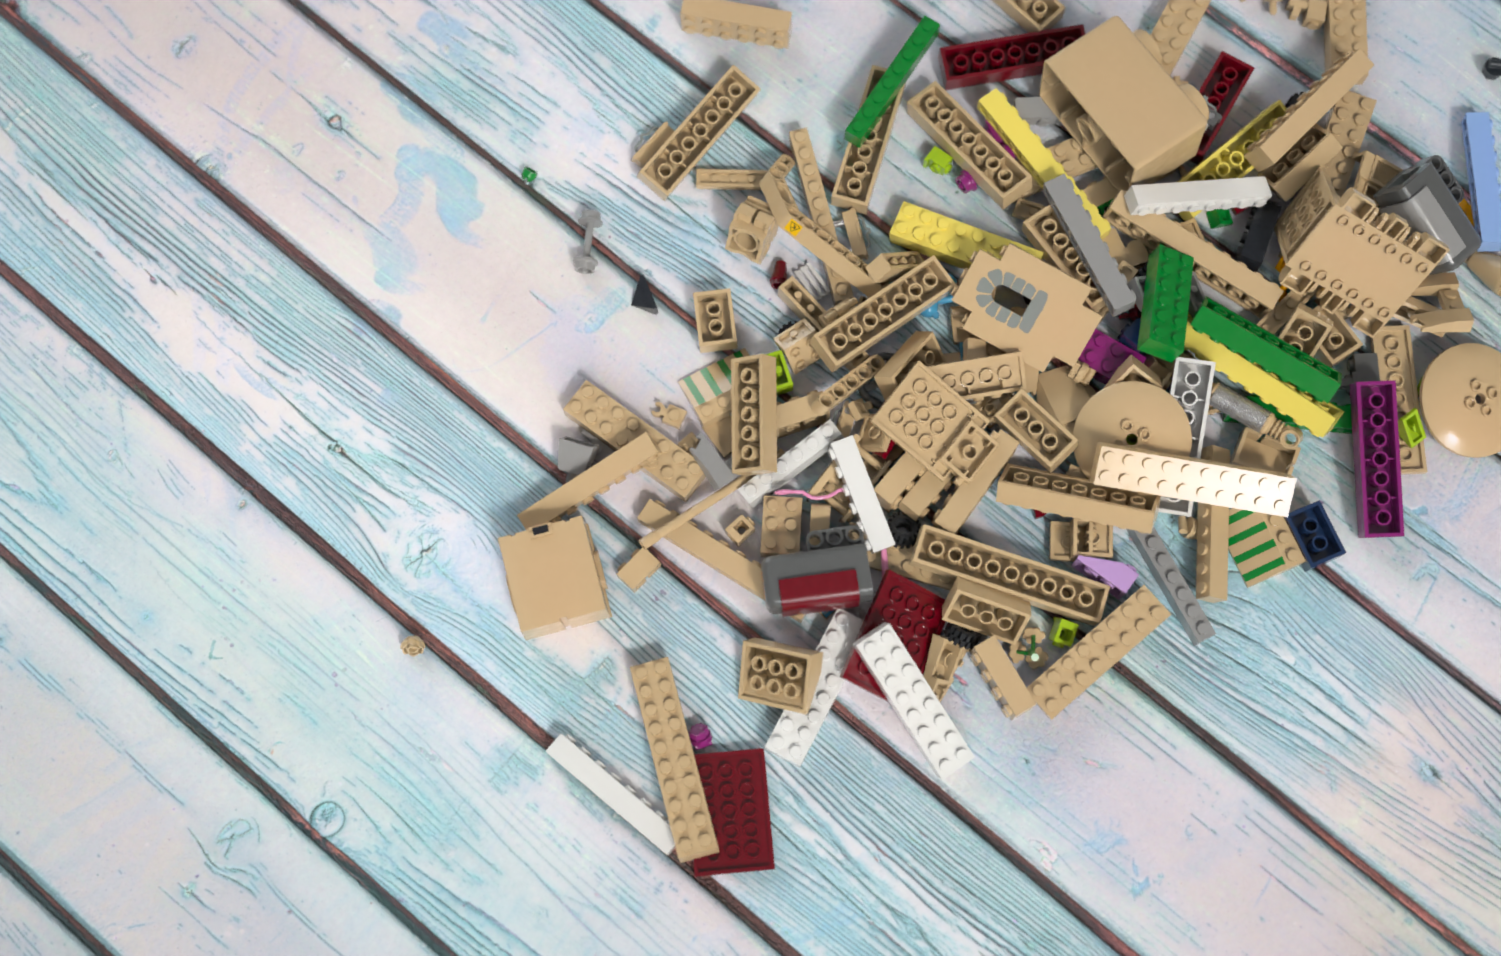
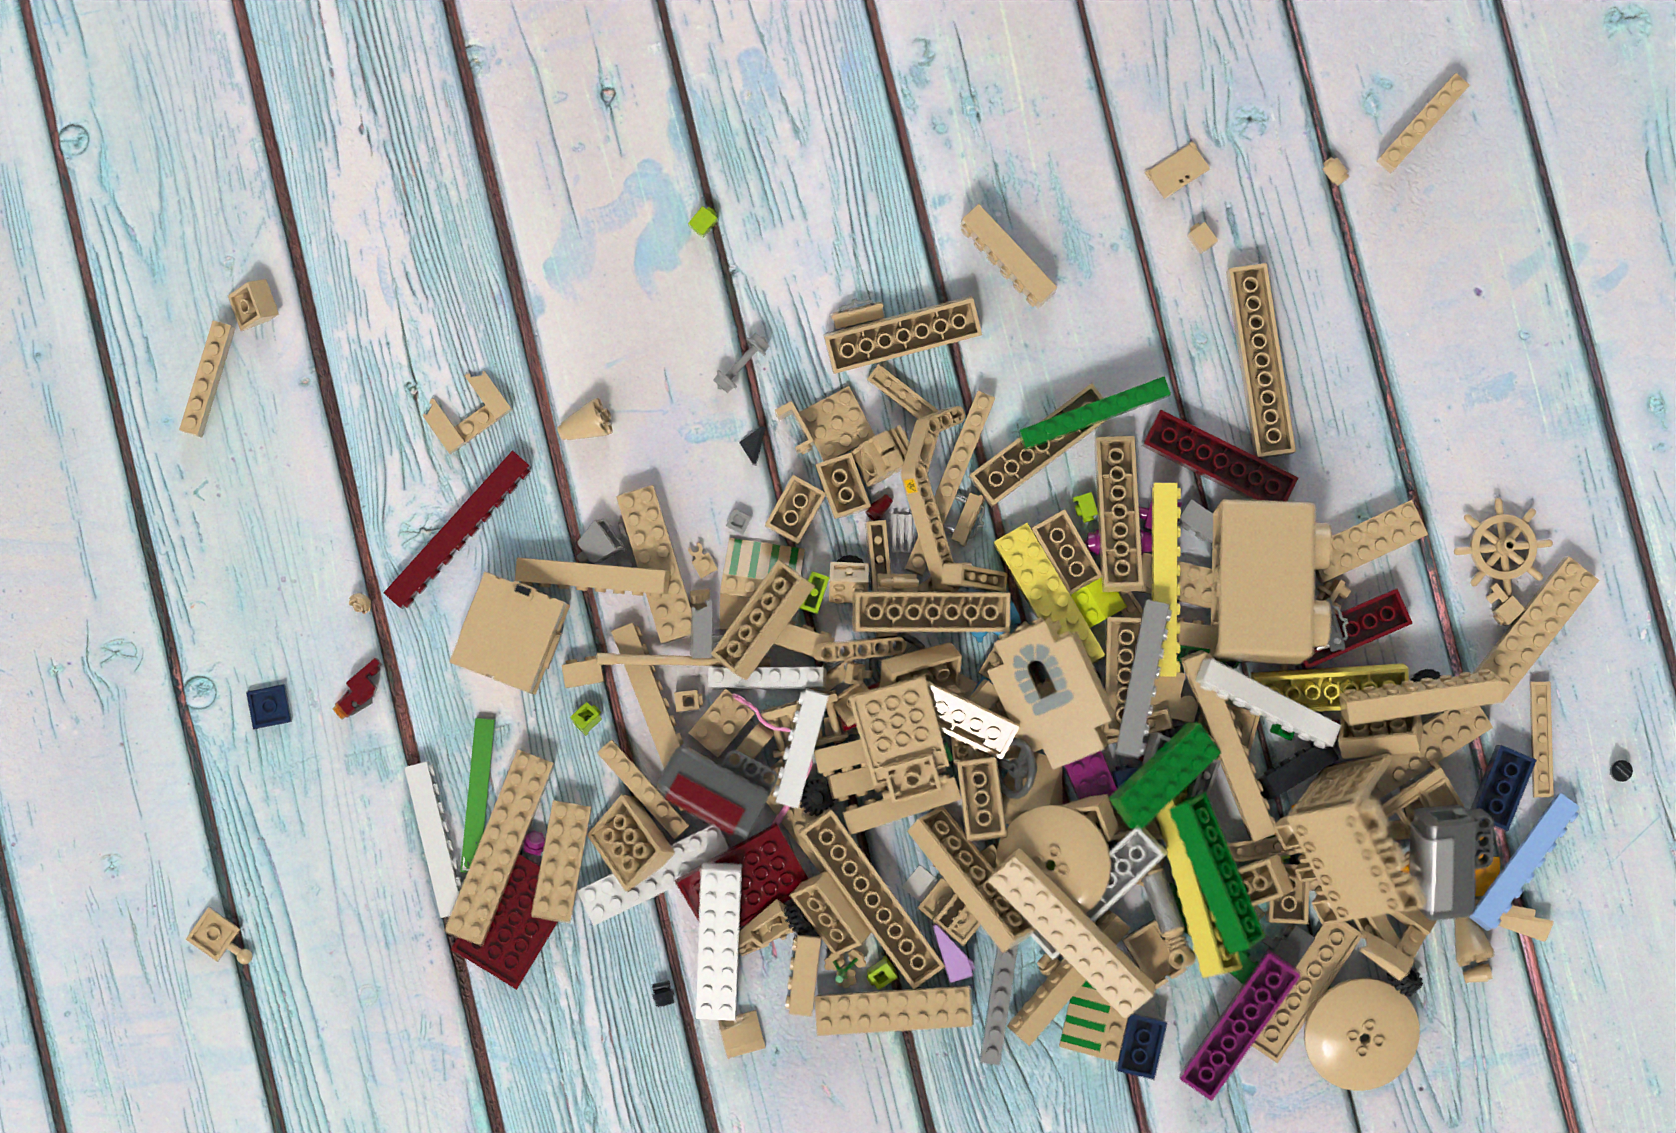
camera: 30 degrees right, 10 degrees up
(155, 471) = (253, 304): none -> tan slope
(157, 557) = (207, 379): none -> tan brick
(395, 787) = (268, 706): none -> dark blue tile
(414, 417) = (491, 412): none -> tan wedge
(452, 530) = (457, 530): none -> dark red brick
(464, 716) = (361, 691): none -> dark red plate
(479, 160) = (703, 221): none -> lime brick
(497, 372) = (586, 422): none -> tan cone
(529, 173) = (736, 264): green hinge -> none
(622, 730) = (477, 790): none -> bright green tile
(657, 247) = (788, 409): none -> tan panel
(662, 605) = (584, 712): none -> lime brick
(676, 363) = (738, 521): none -> light grey plate
(697, 238) = (836, 424): none -> tan plate
(734, 733) = (561, 862): none -> tan brick
(740, 274) = (843, 486): none -> tan slope
(757, 626) = (643, 789): none -> tan brick
(898, 782) = (663, 994): none -> black piece
(951, 200) = (1066, 551): none -> tan brick
(988, 767) = (741, 1034): none -> tan slope
(1005, 222) = (1097, 605): none -> neon yellow slope
(1036, 540) = (920, 884): none -> white sticker
(1049, 385) = (1019, 768): none -> dark grey piece
(1081, 373) = (1059, 777): tan piece -> none
(1411, 428) = (1290, 1020): lime slope -> none
(1417, 88) = (1541, 739): none -> tan plate
(1417, 133) = (1503, 785): none -> dark blue brick
(1476, 335) = (1409, 984): none -> black tyre

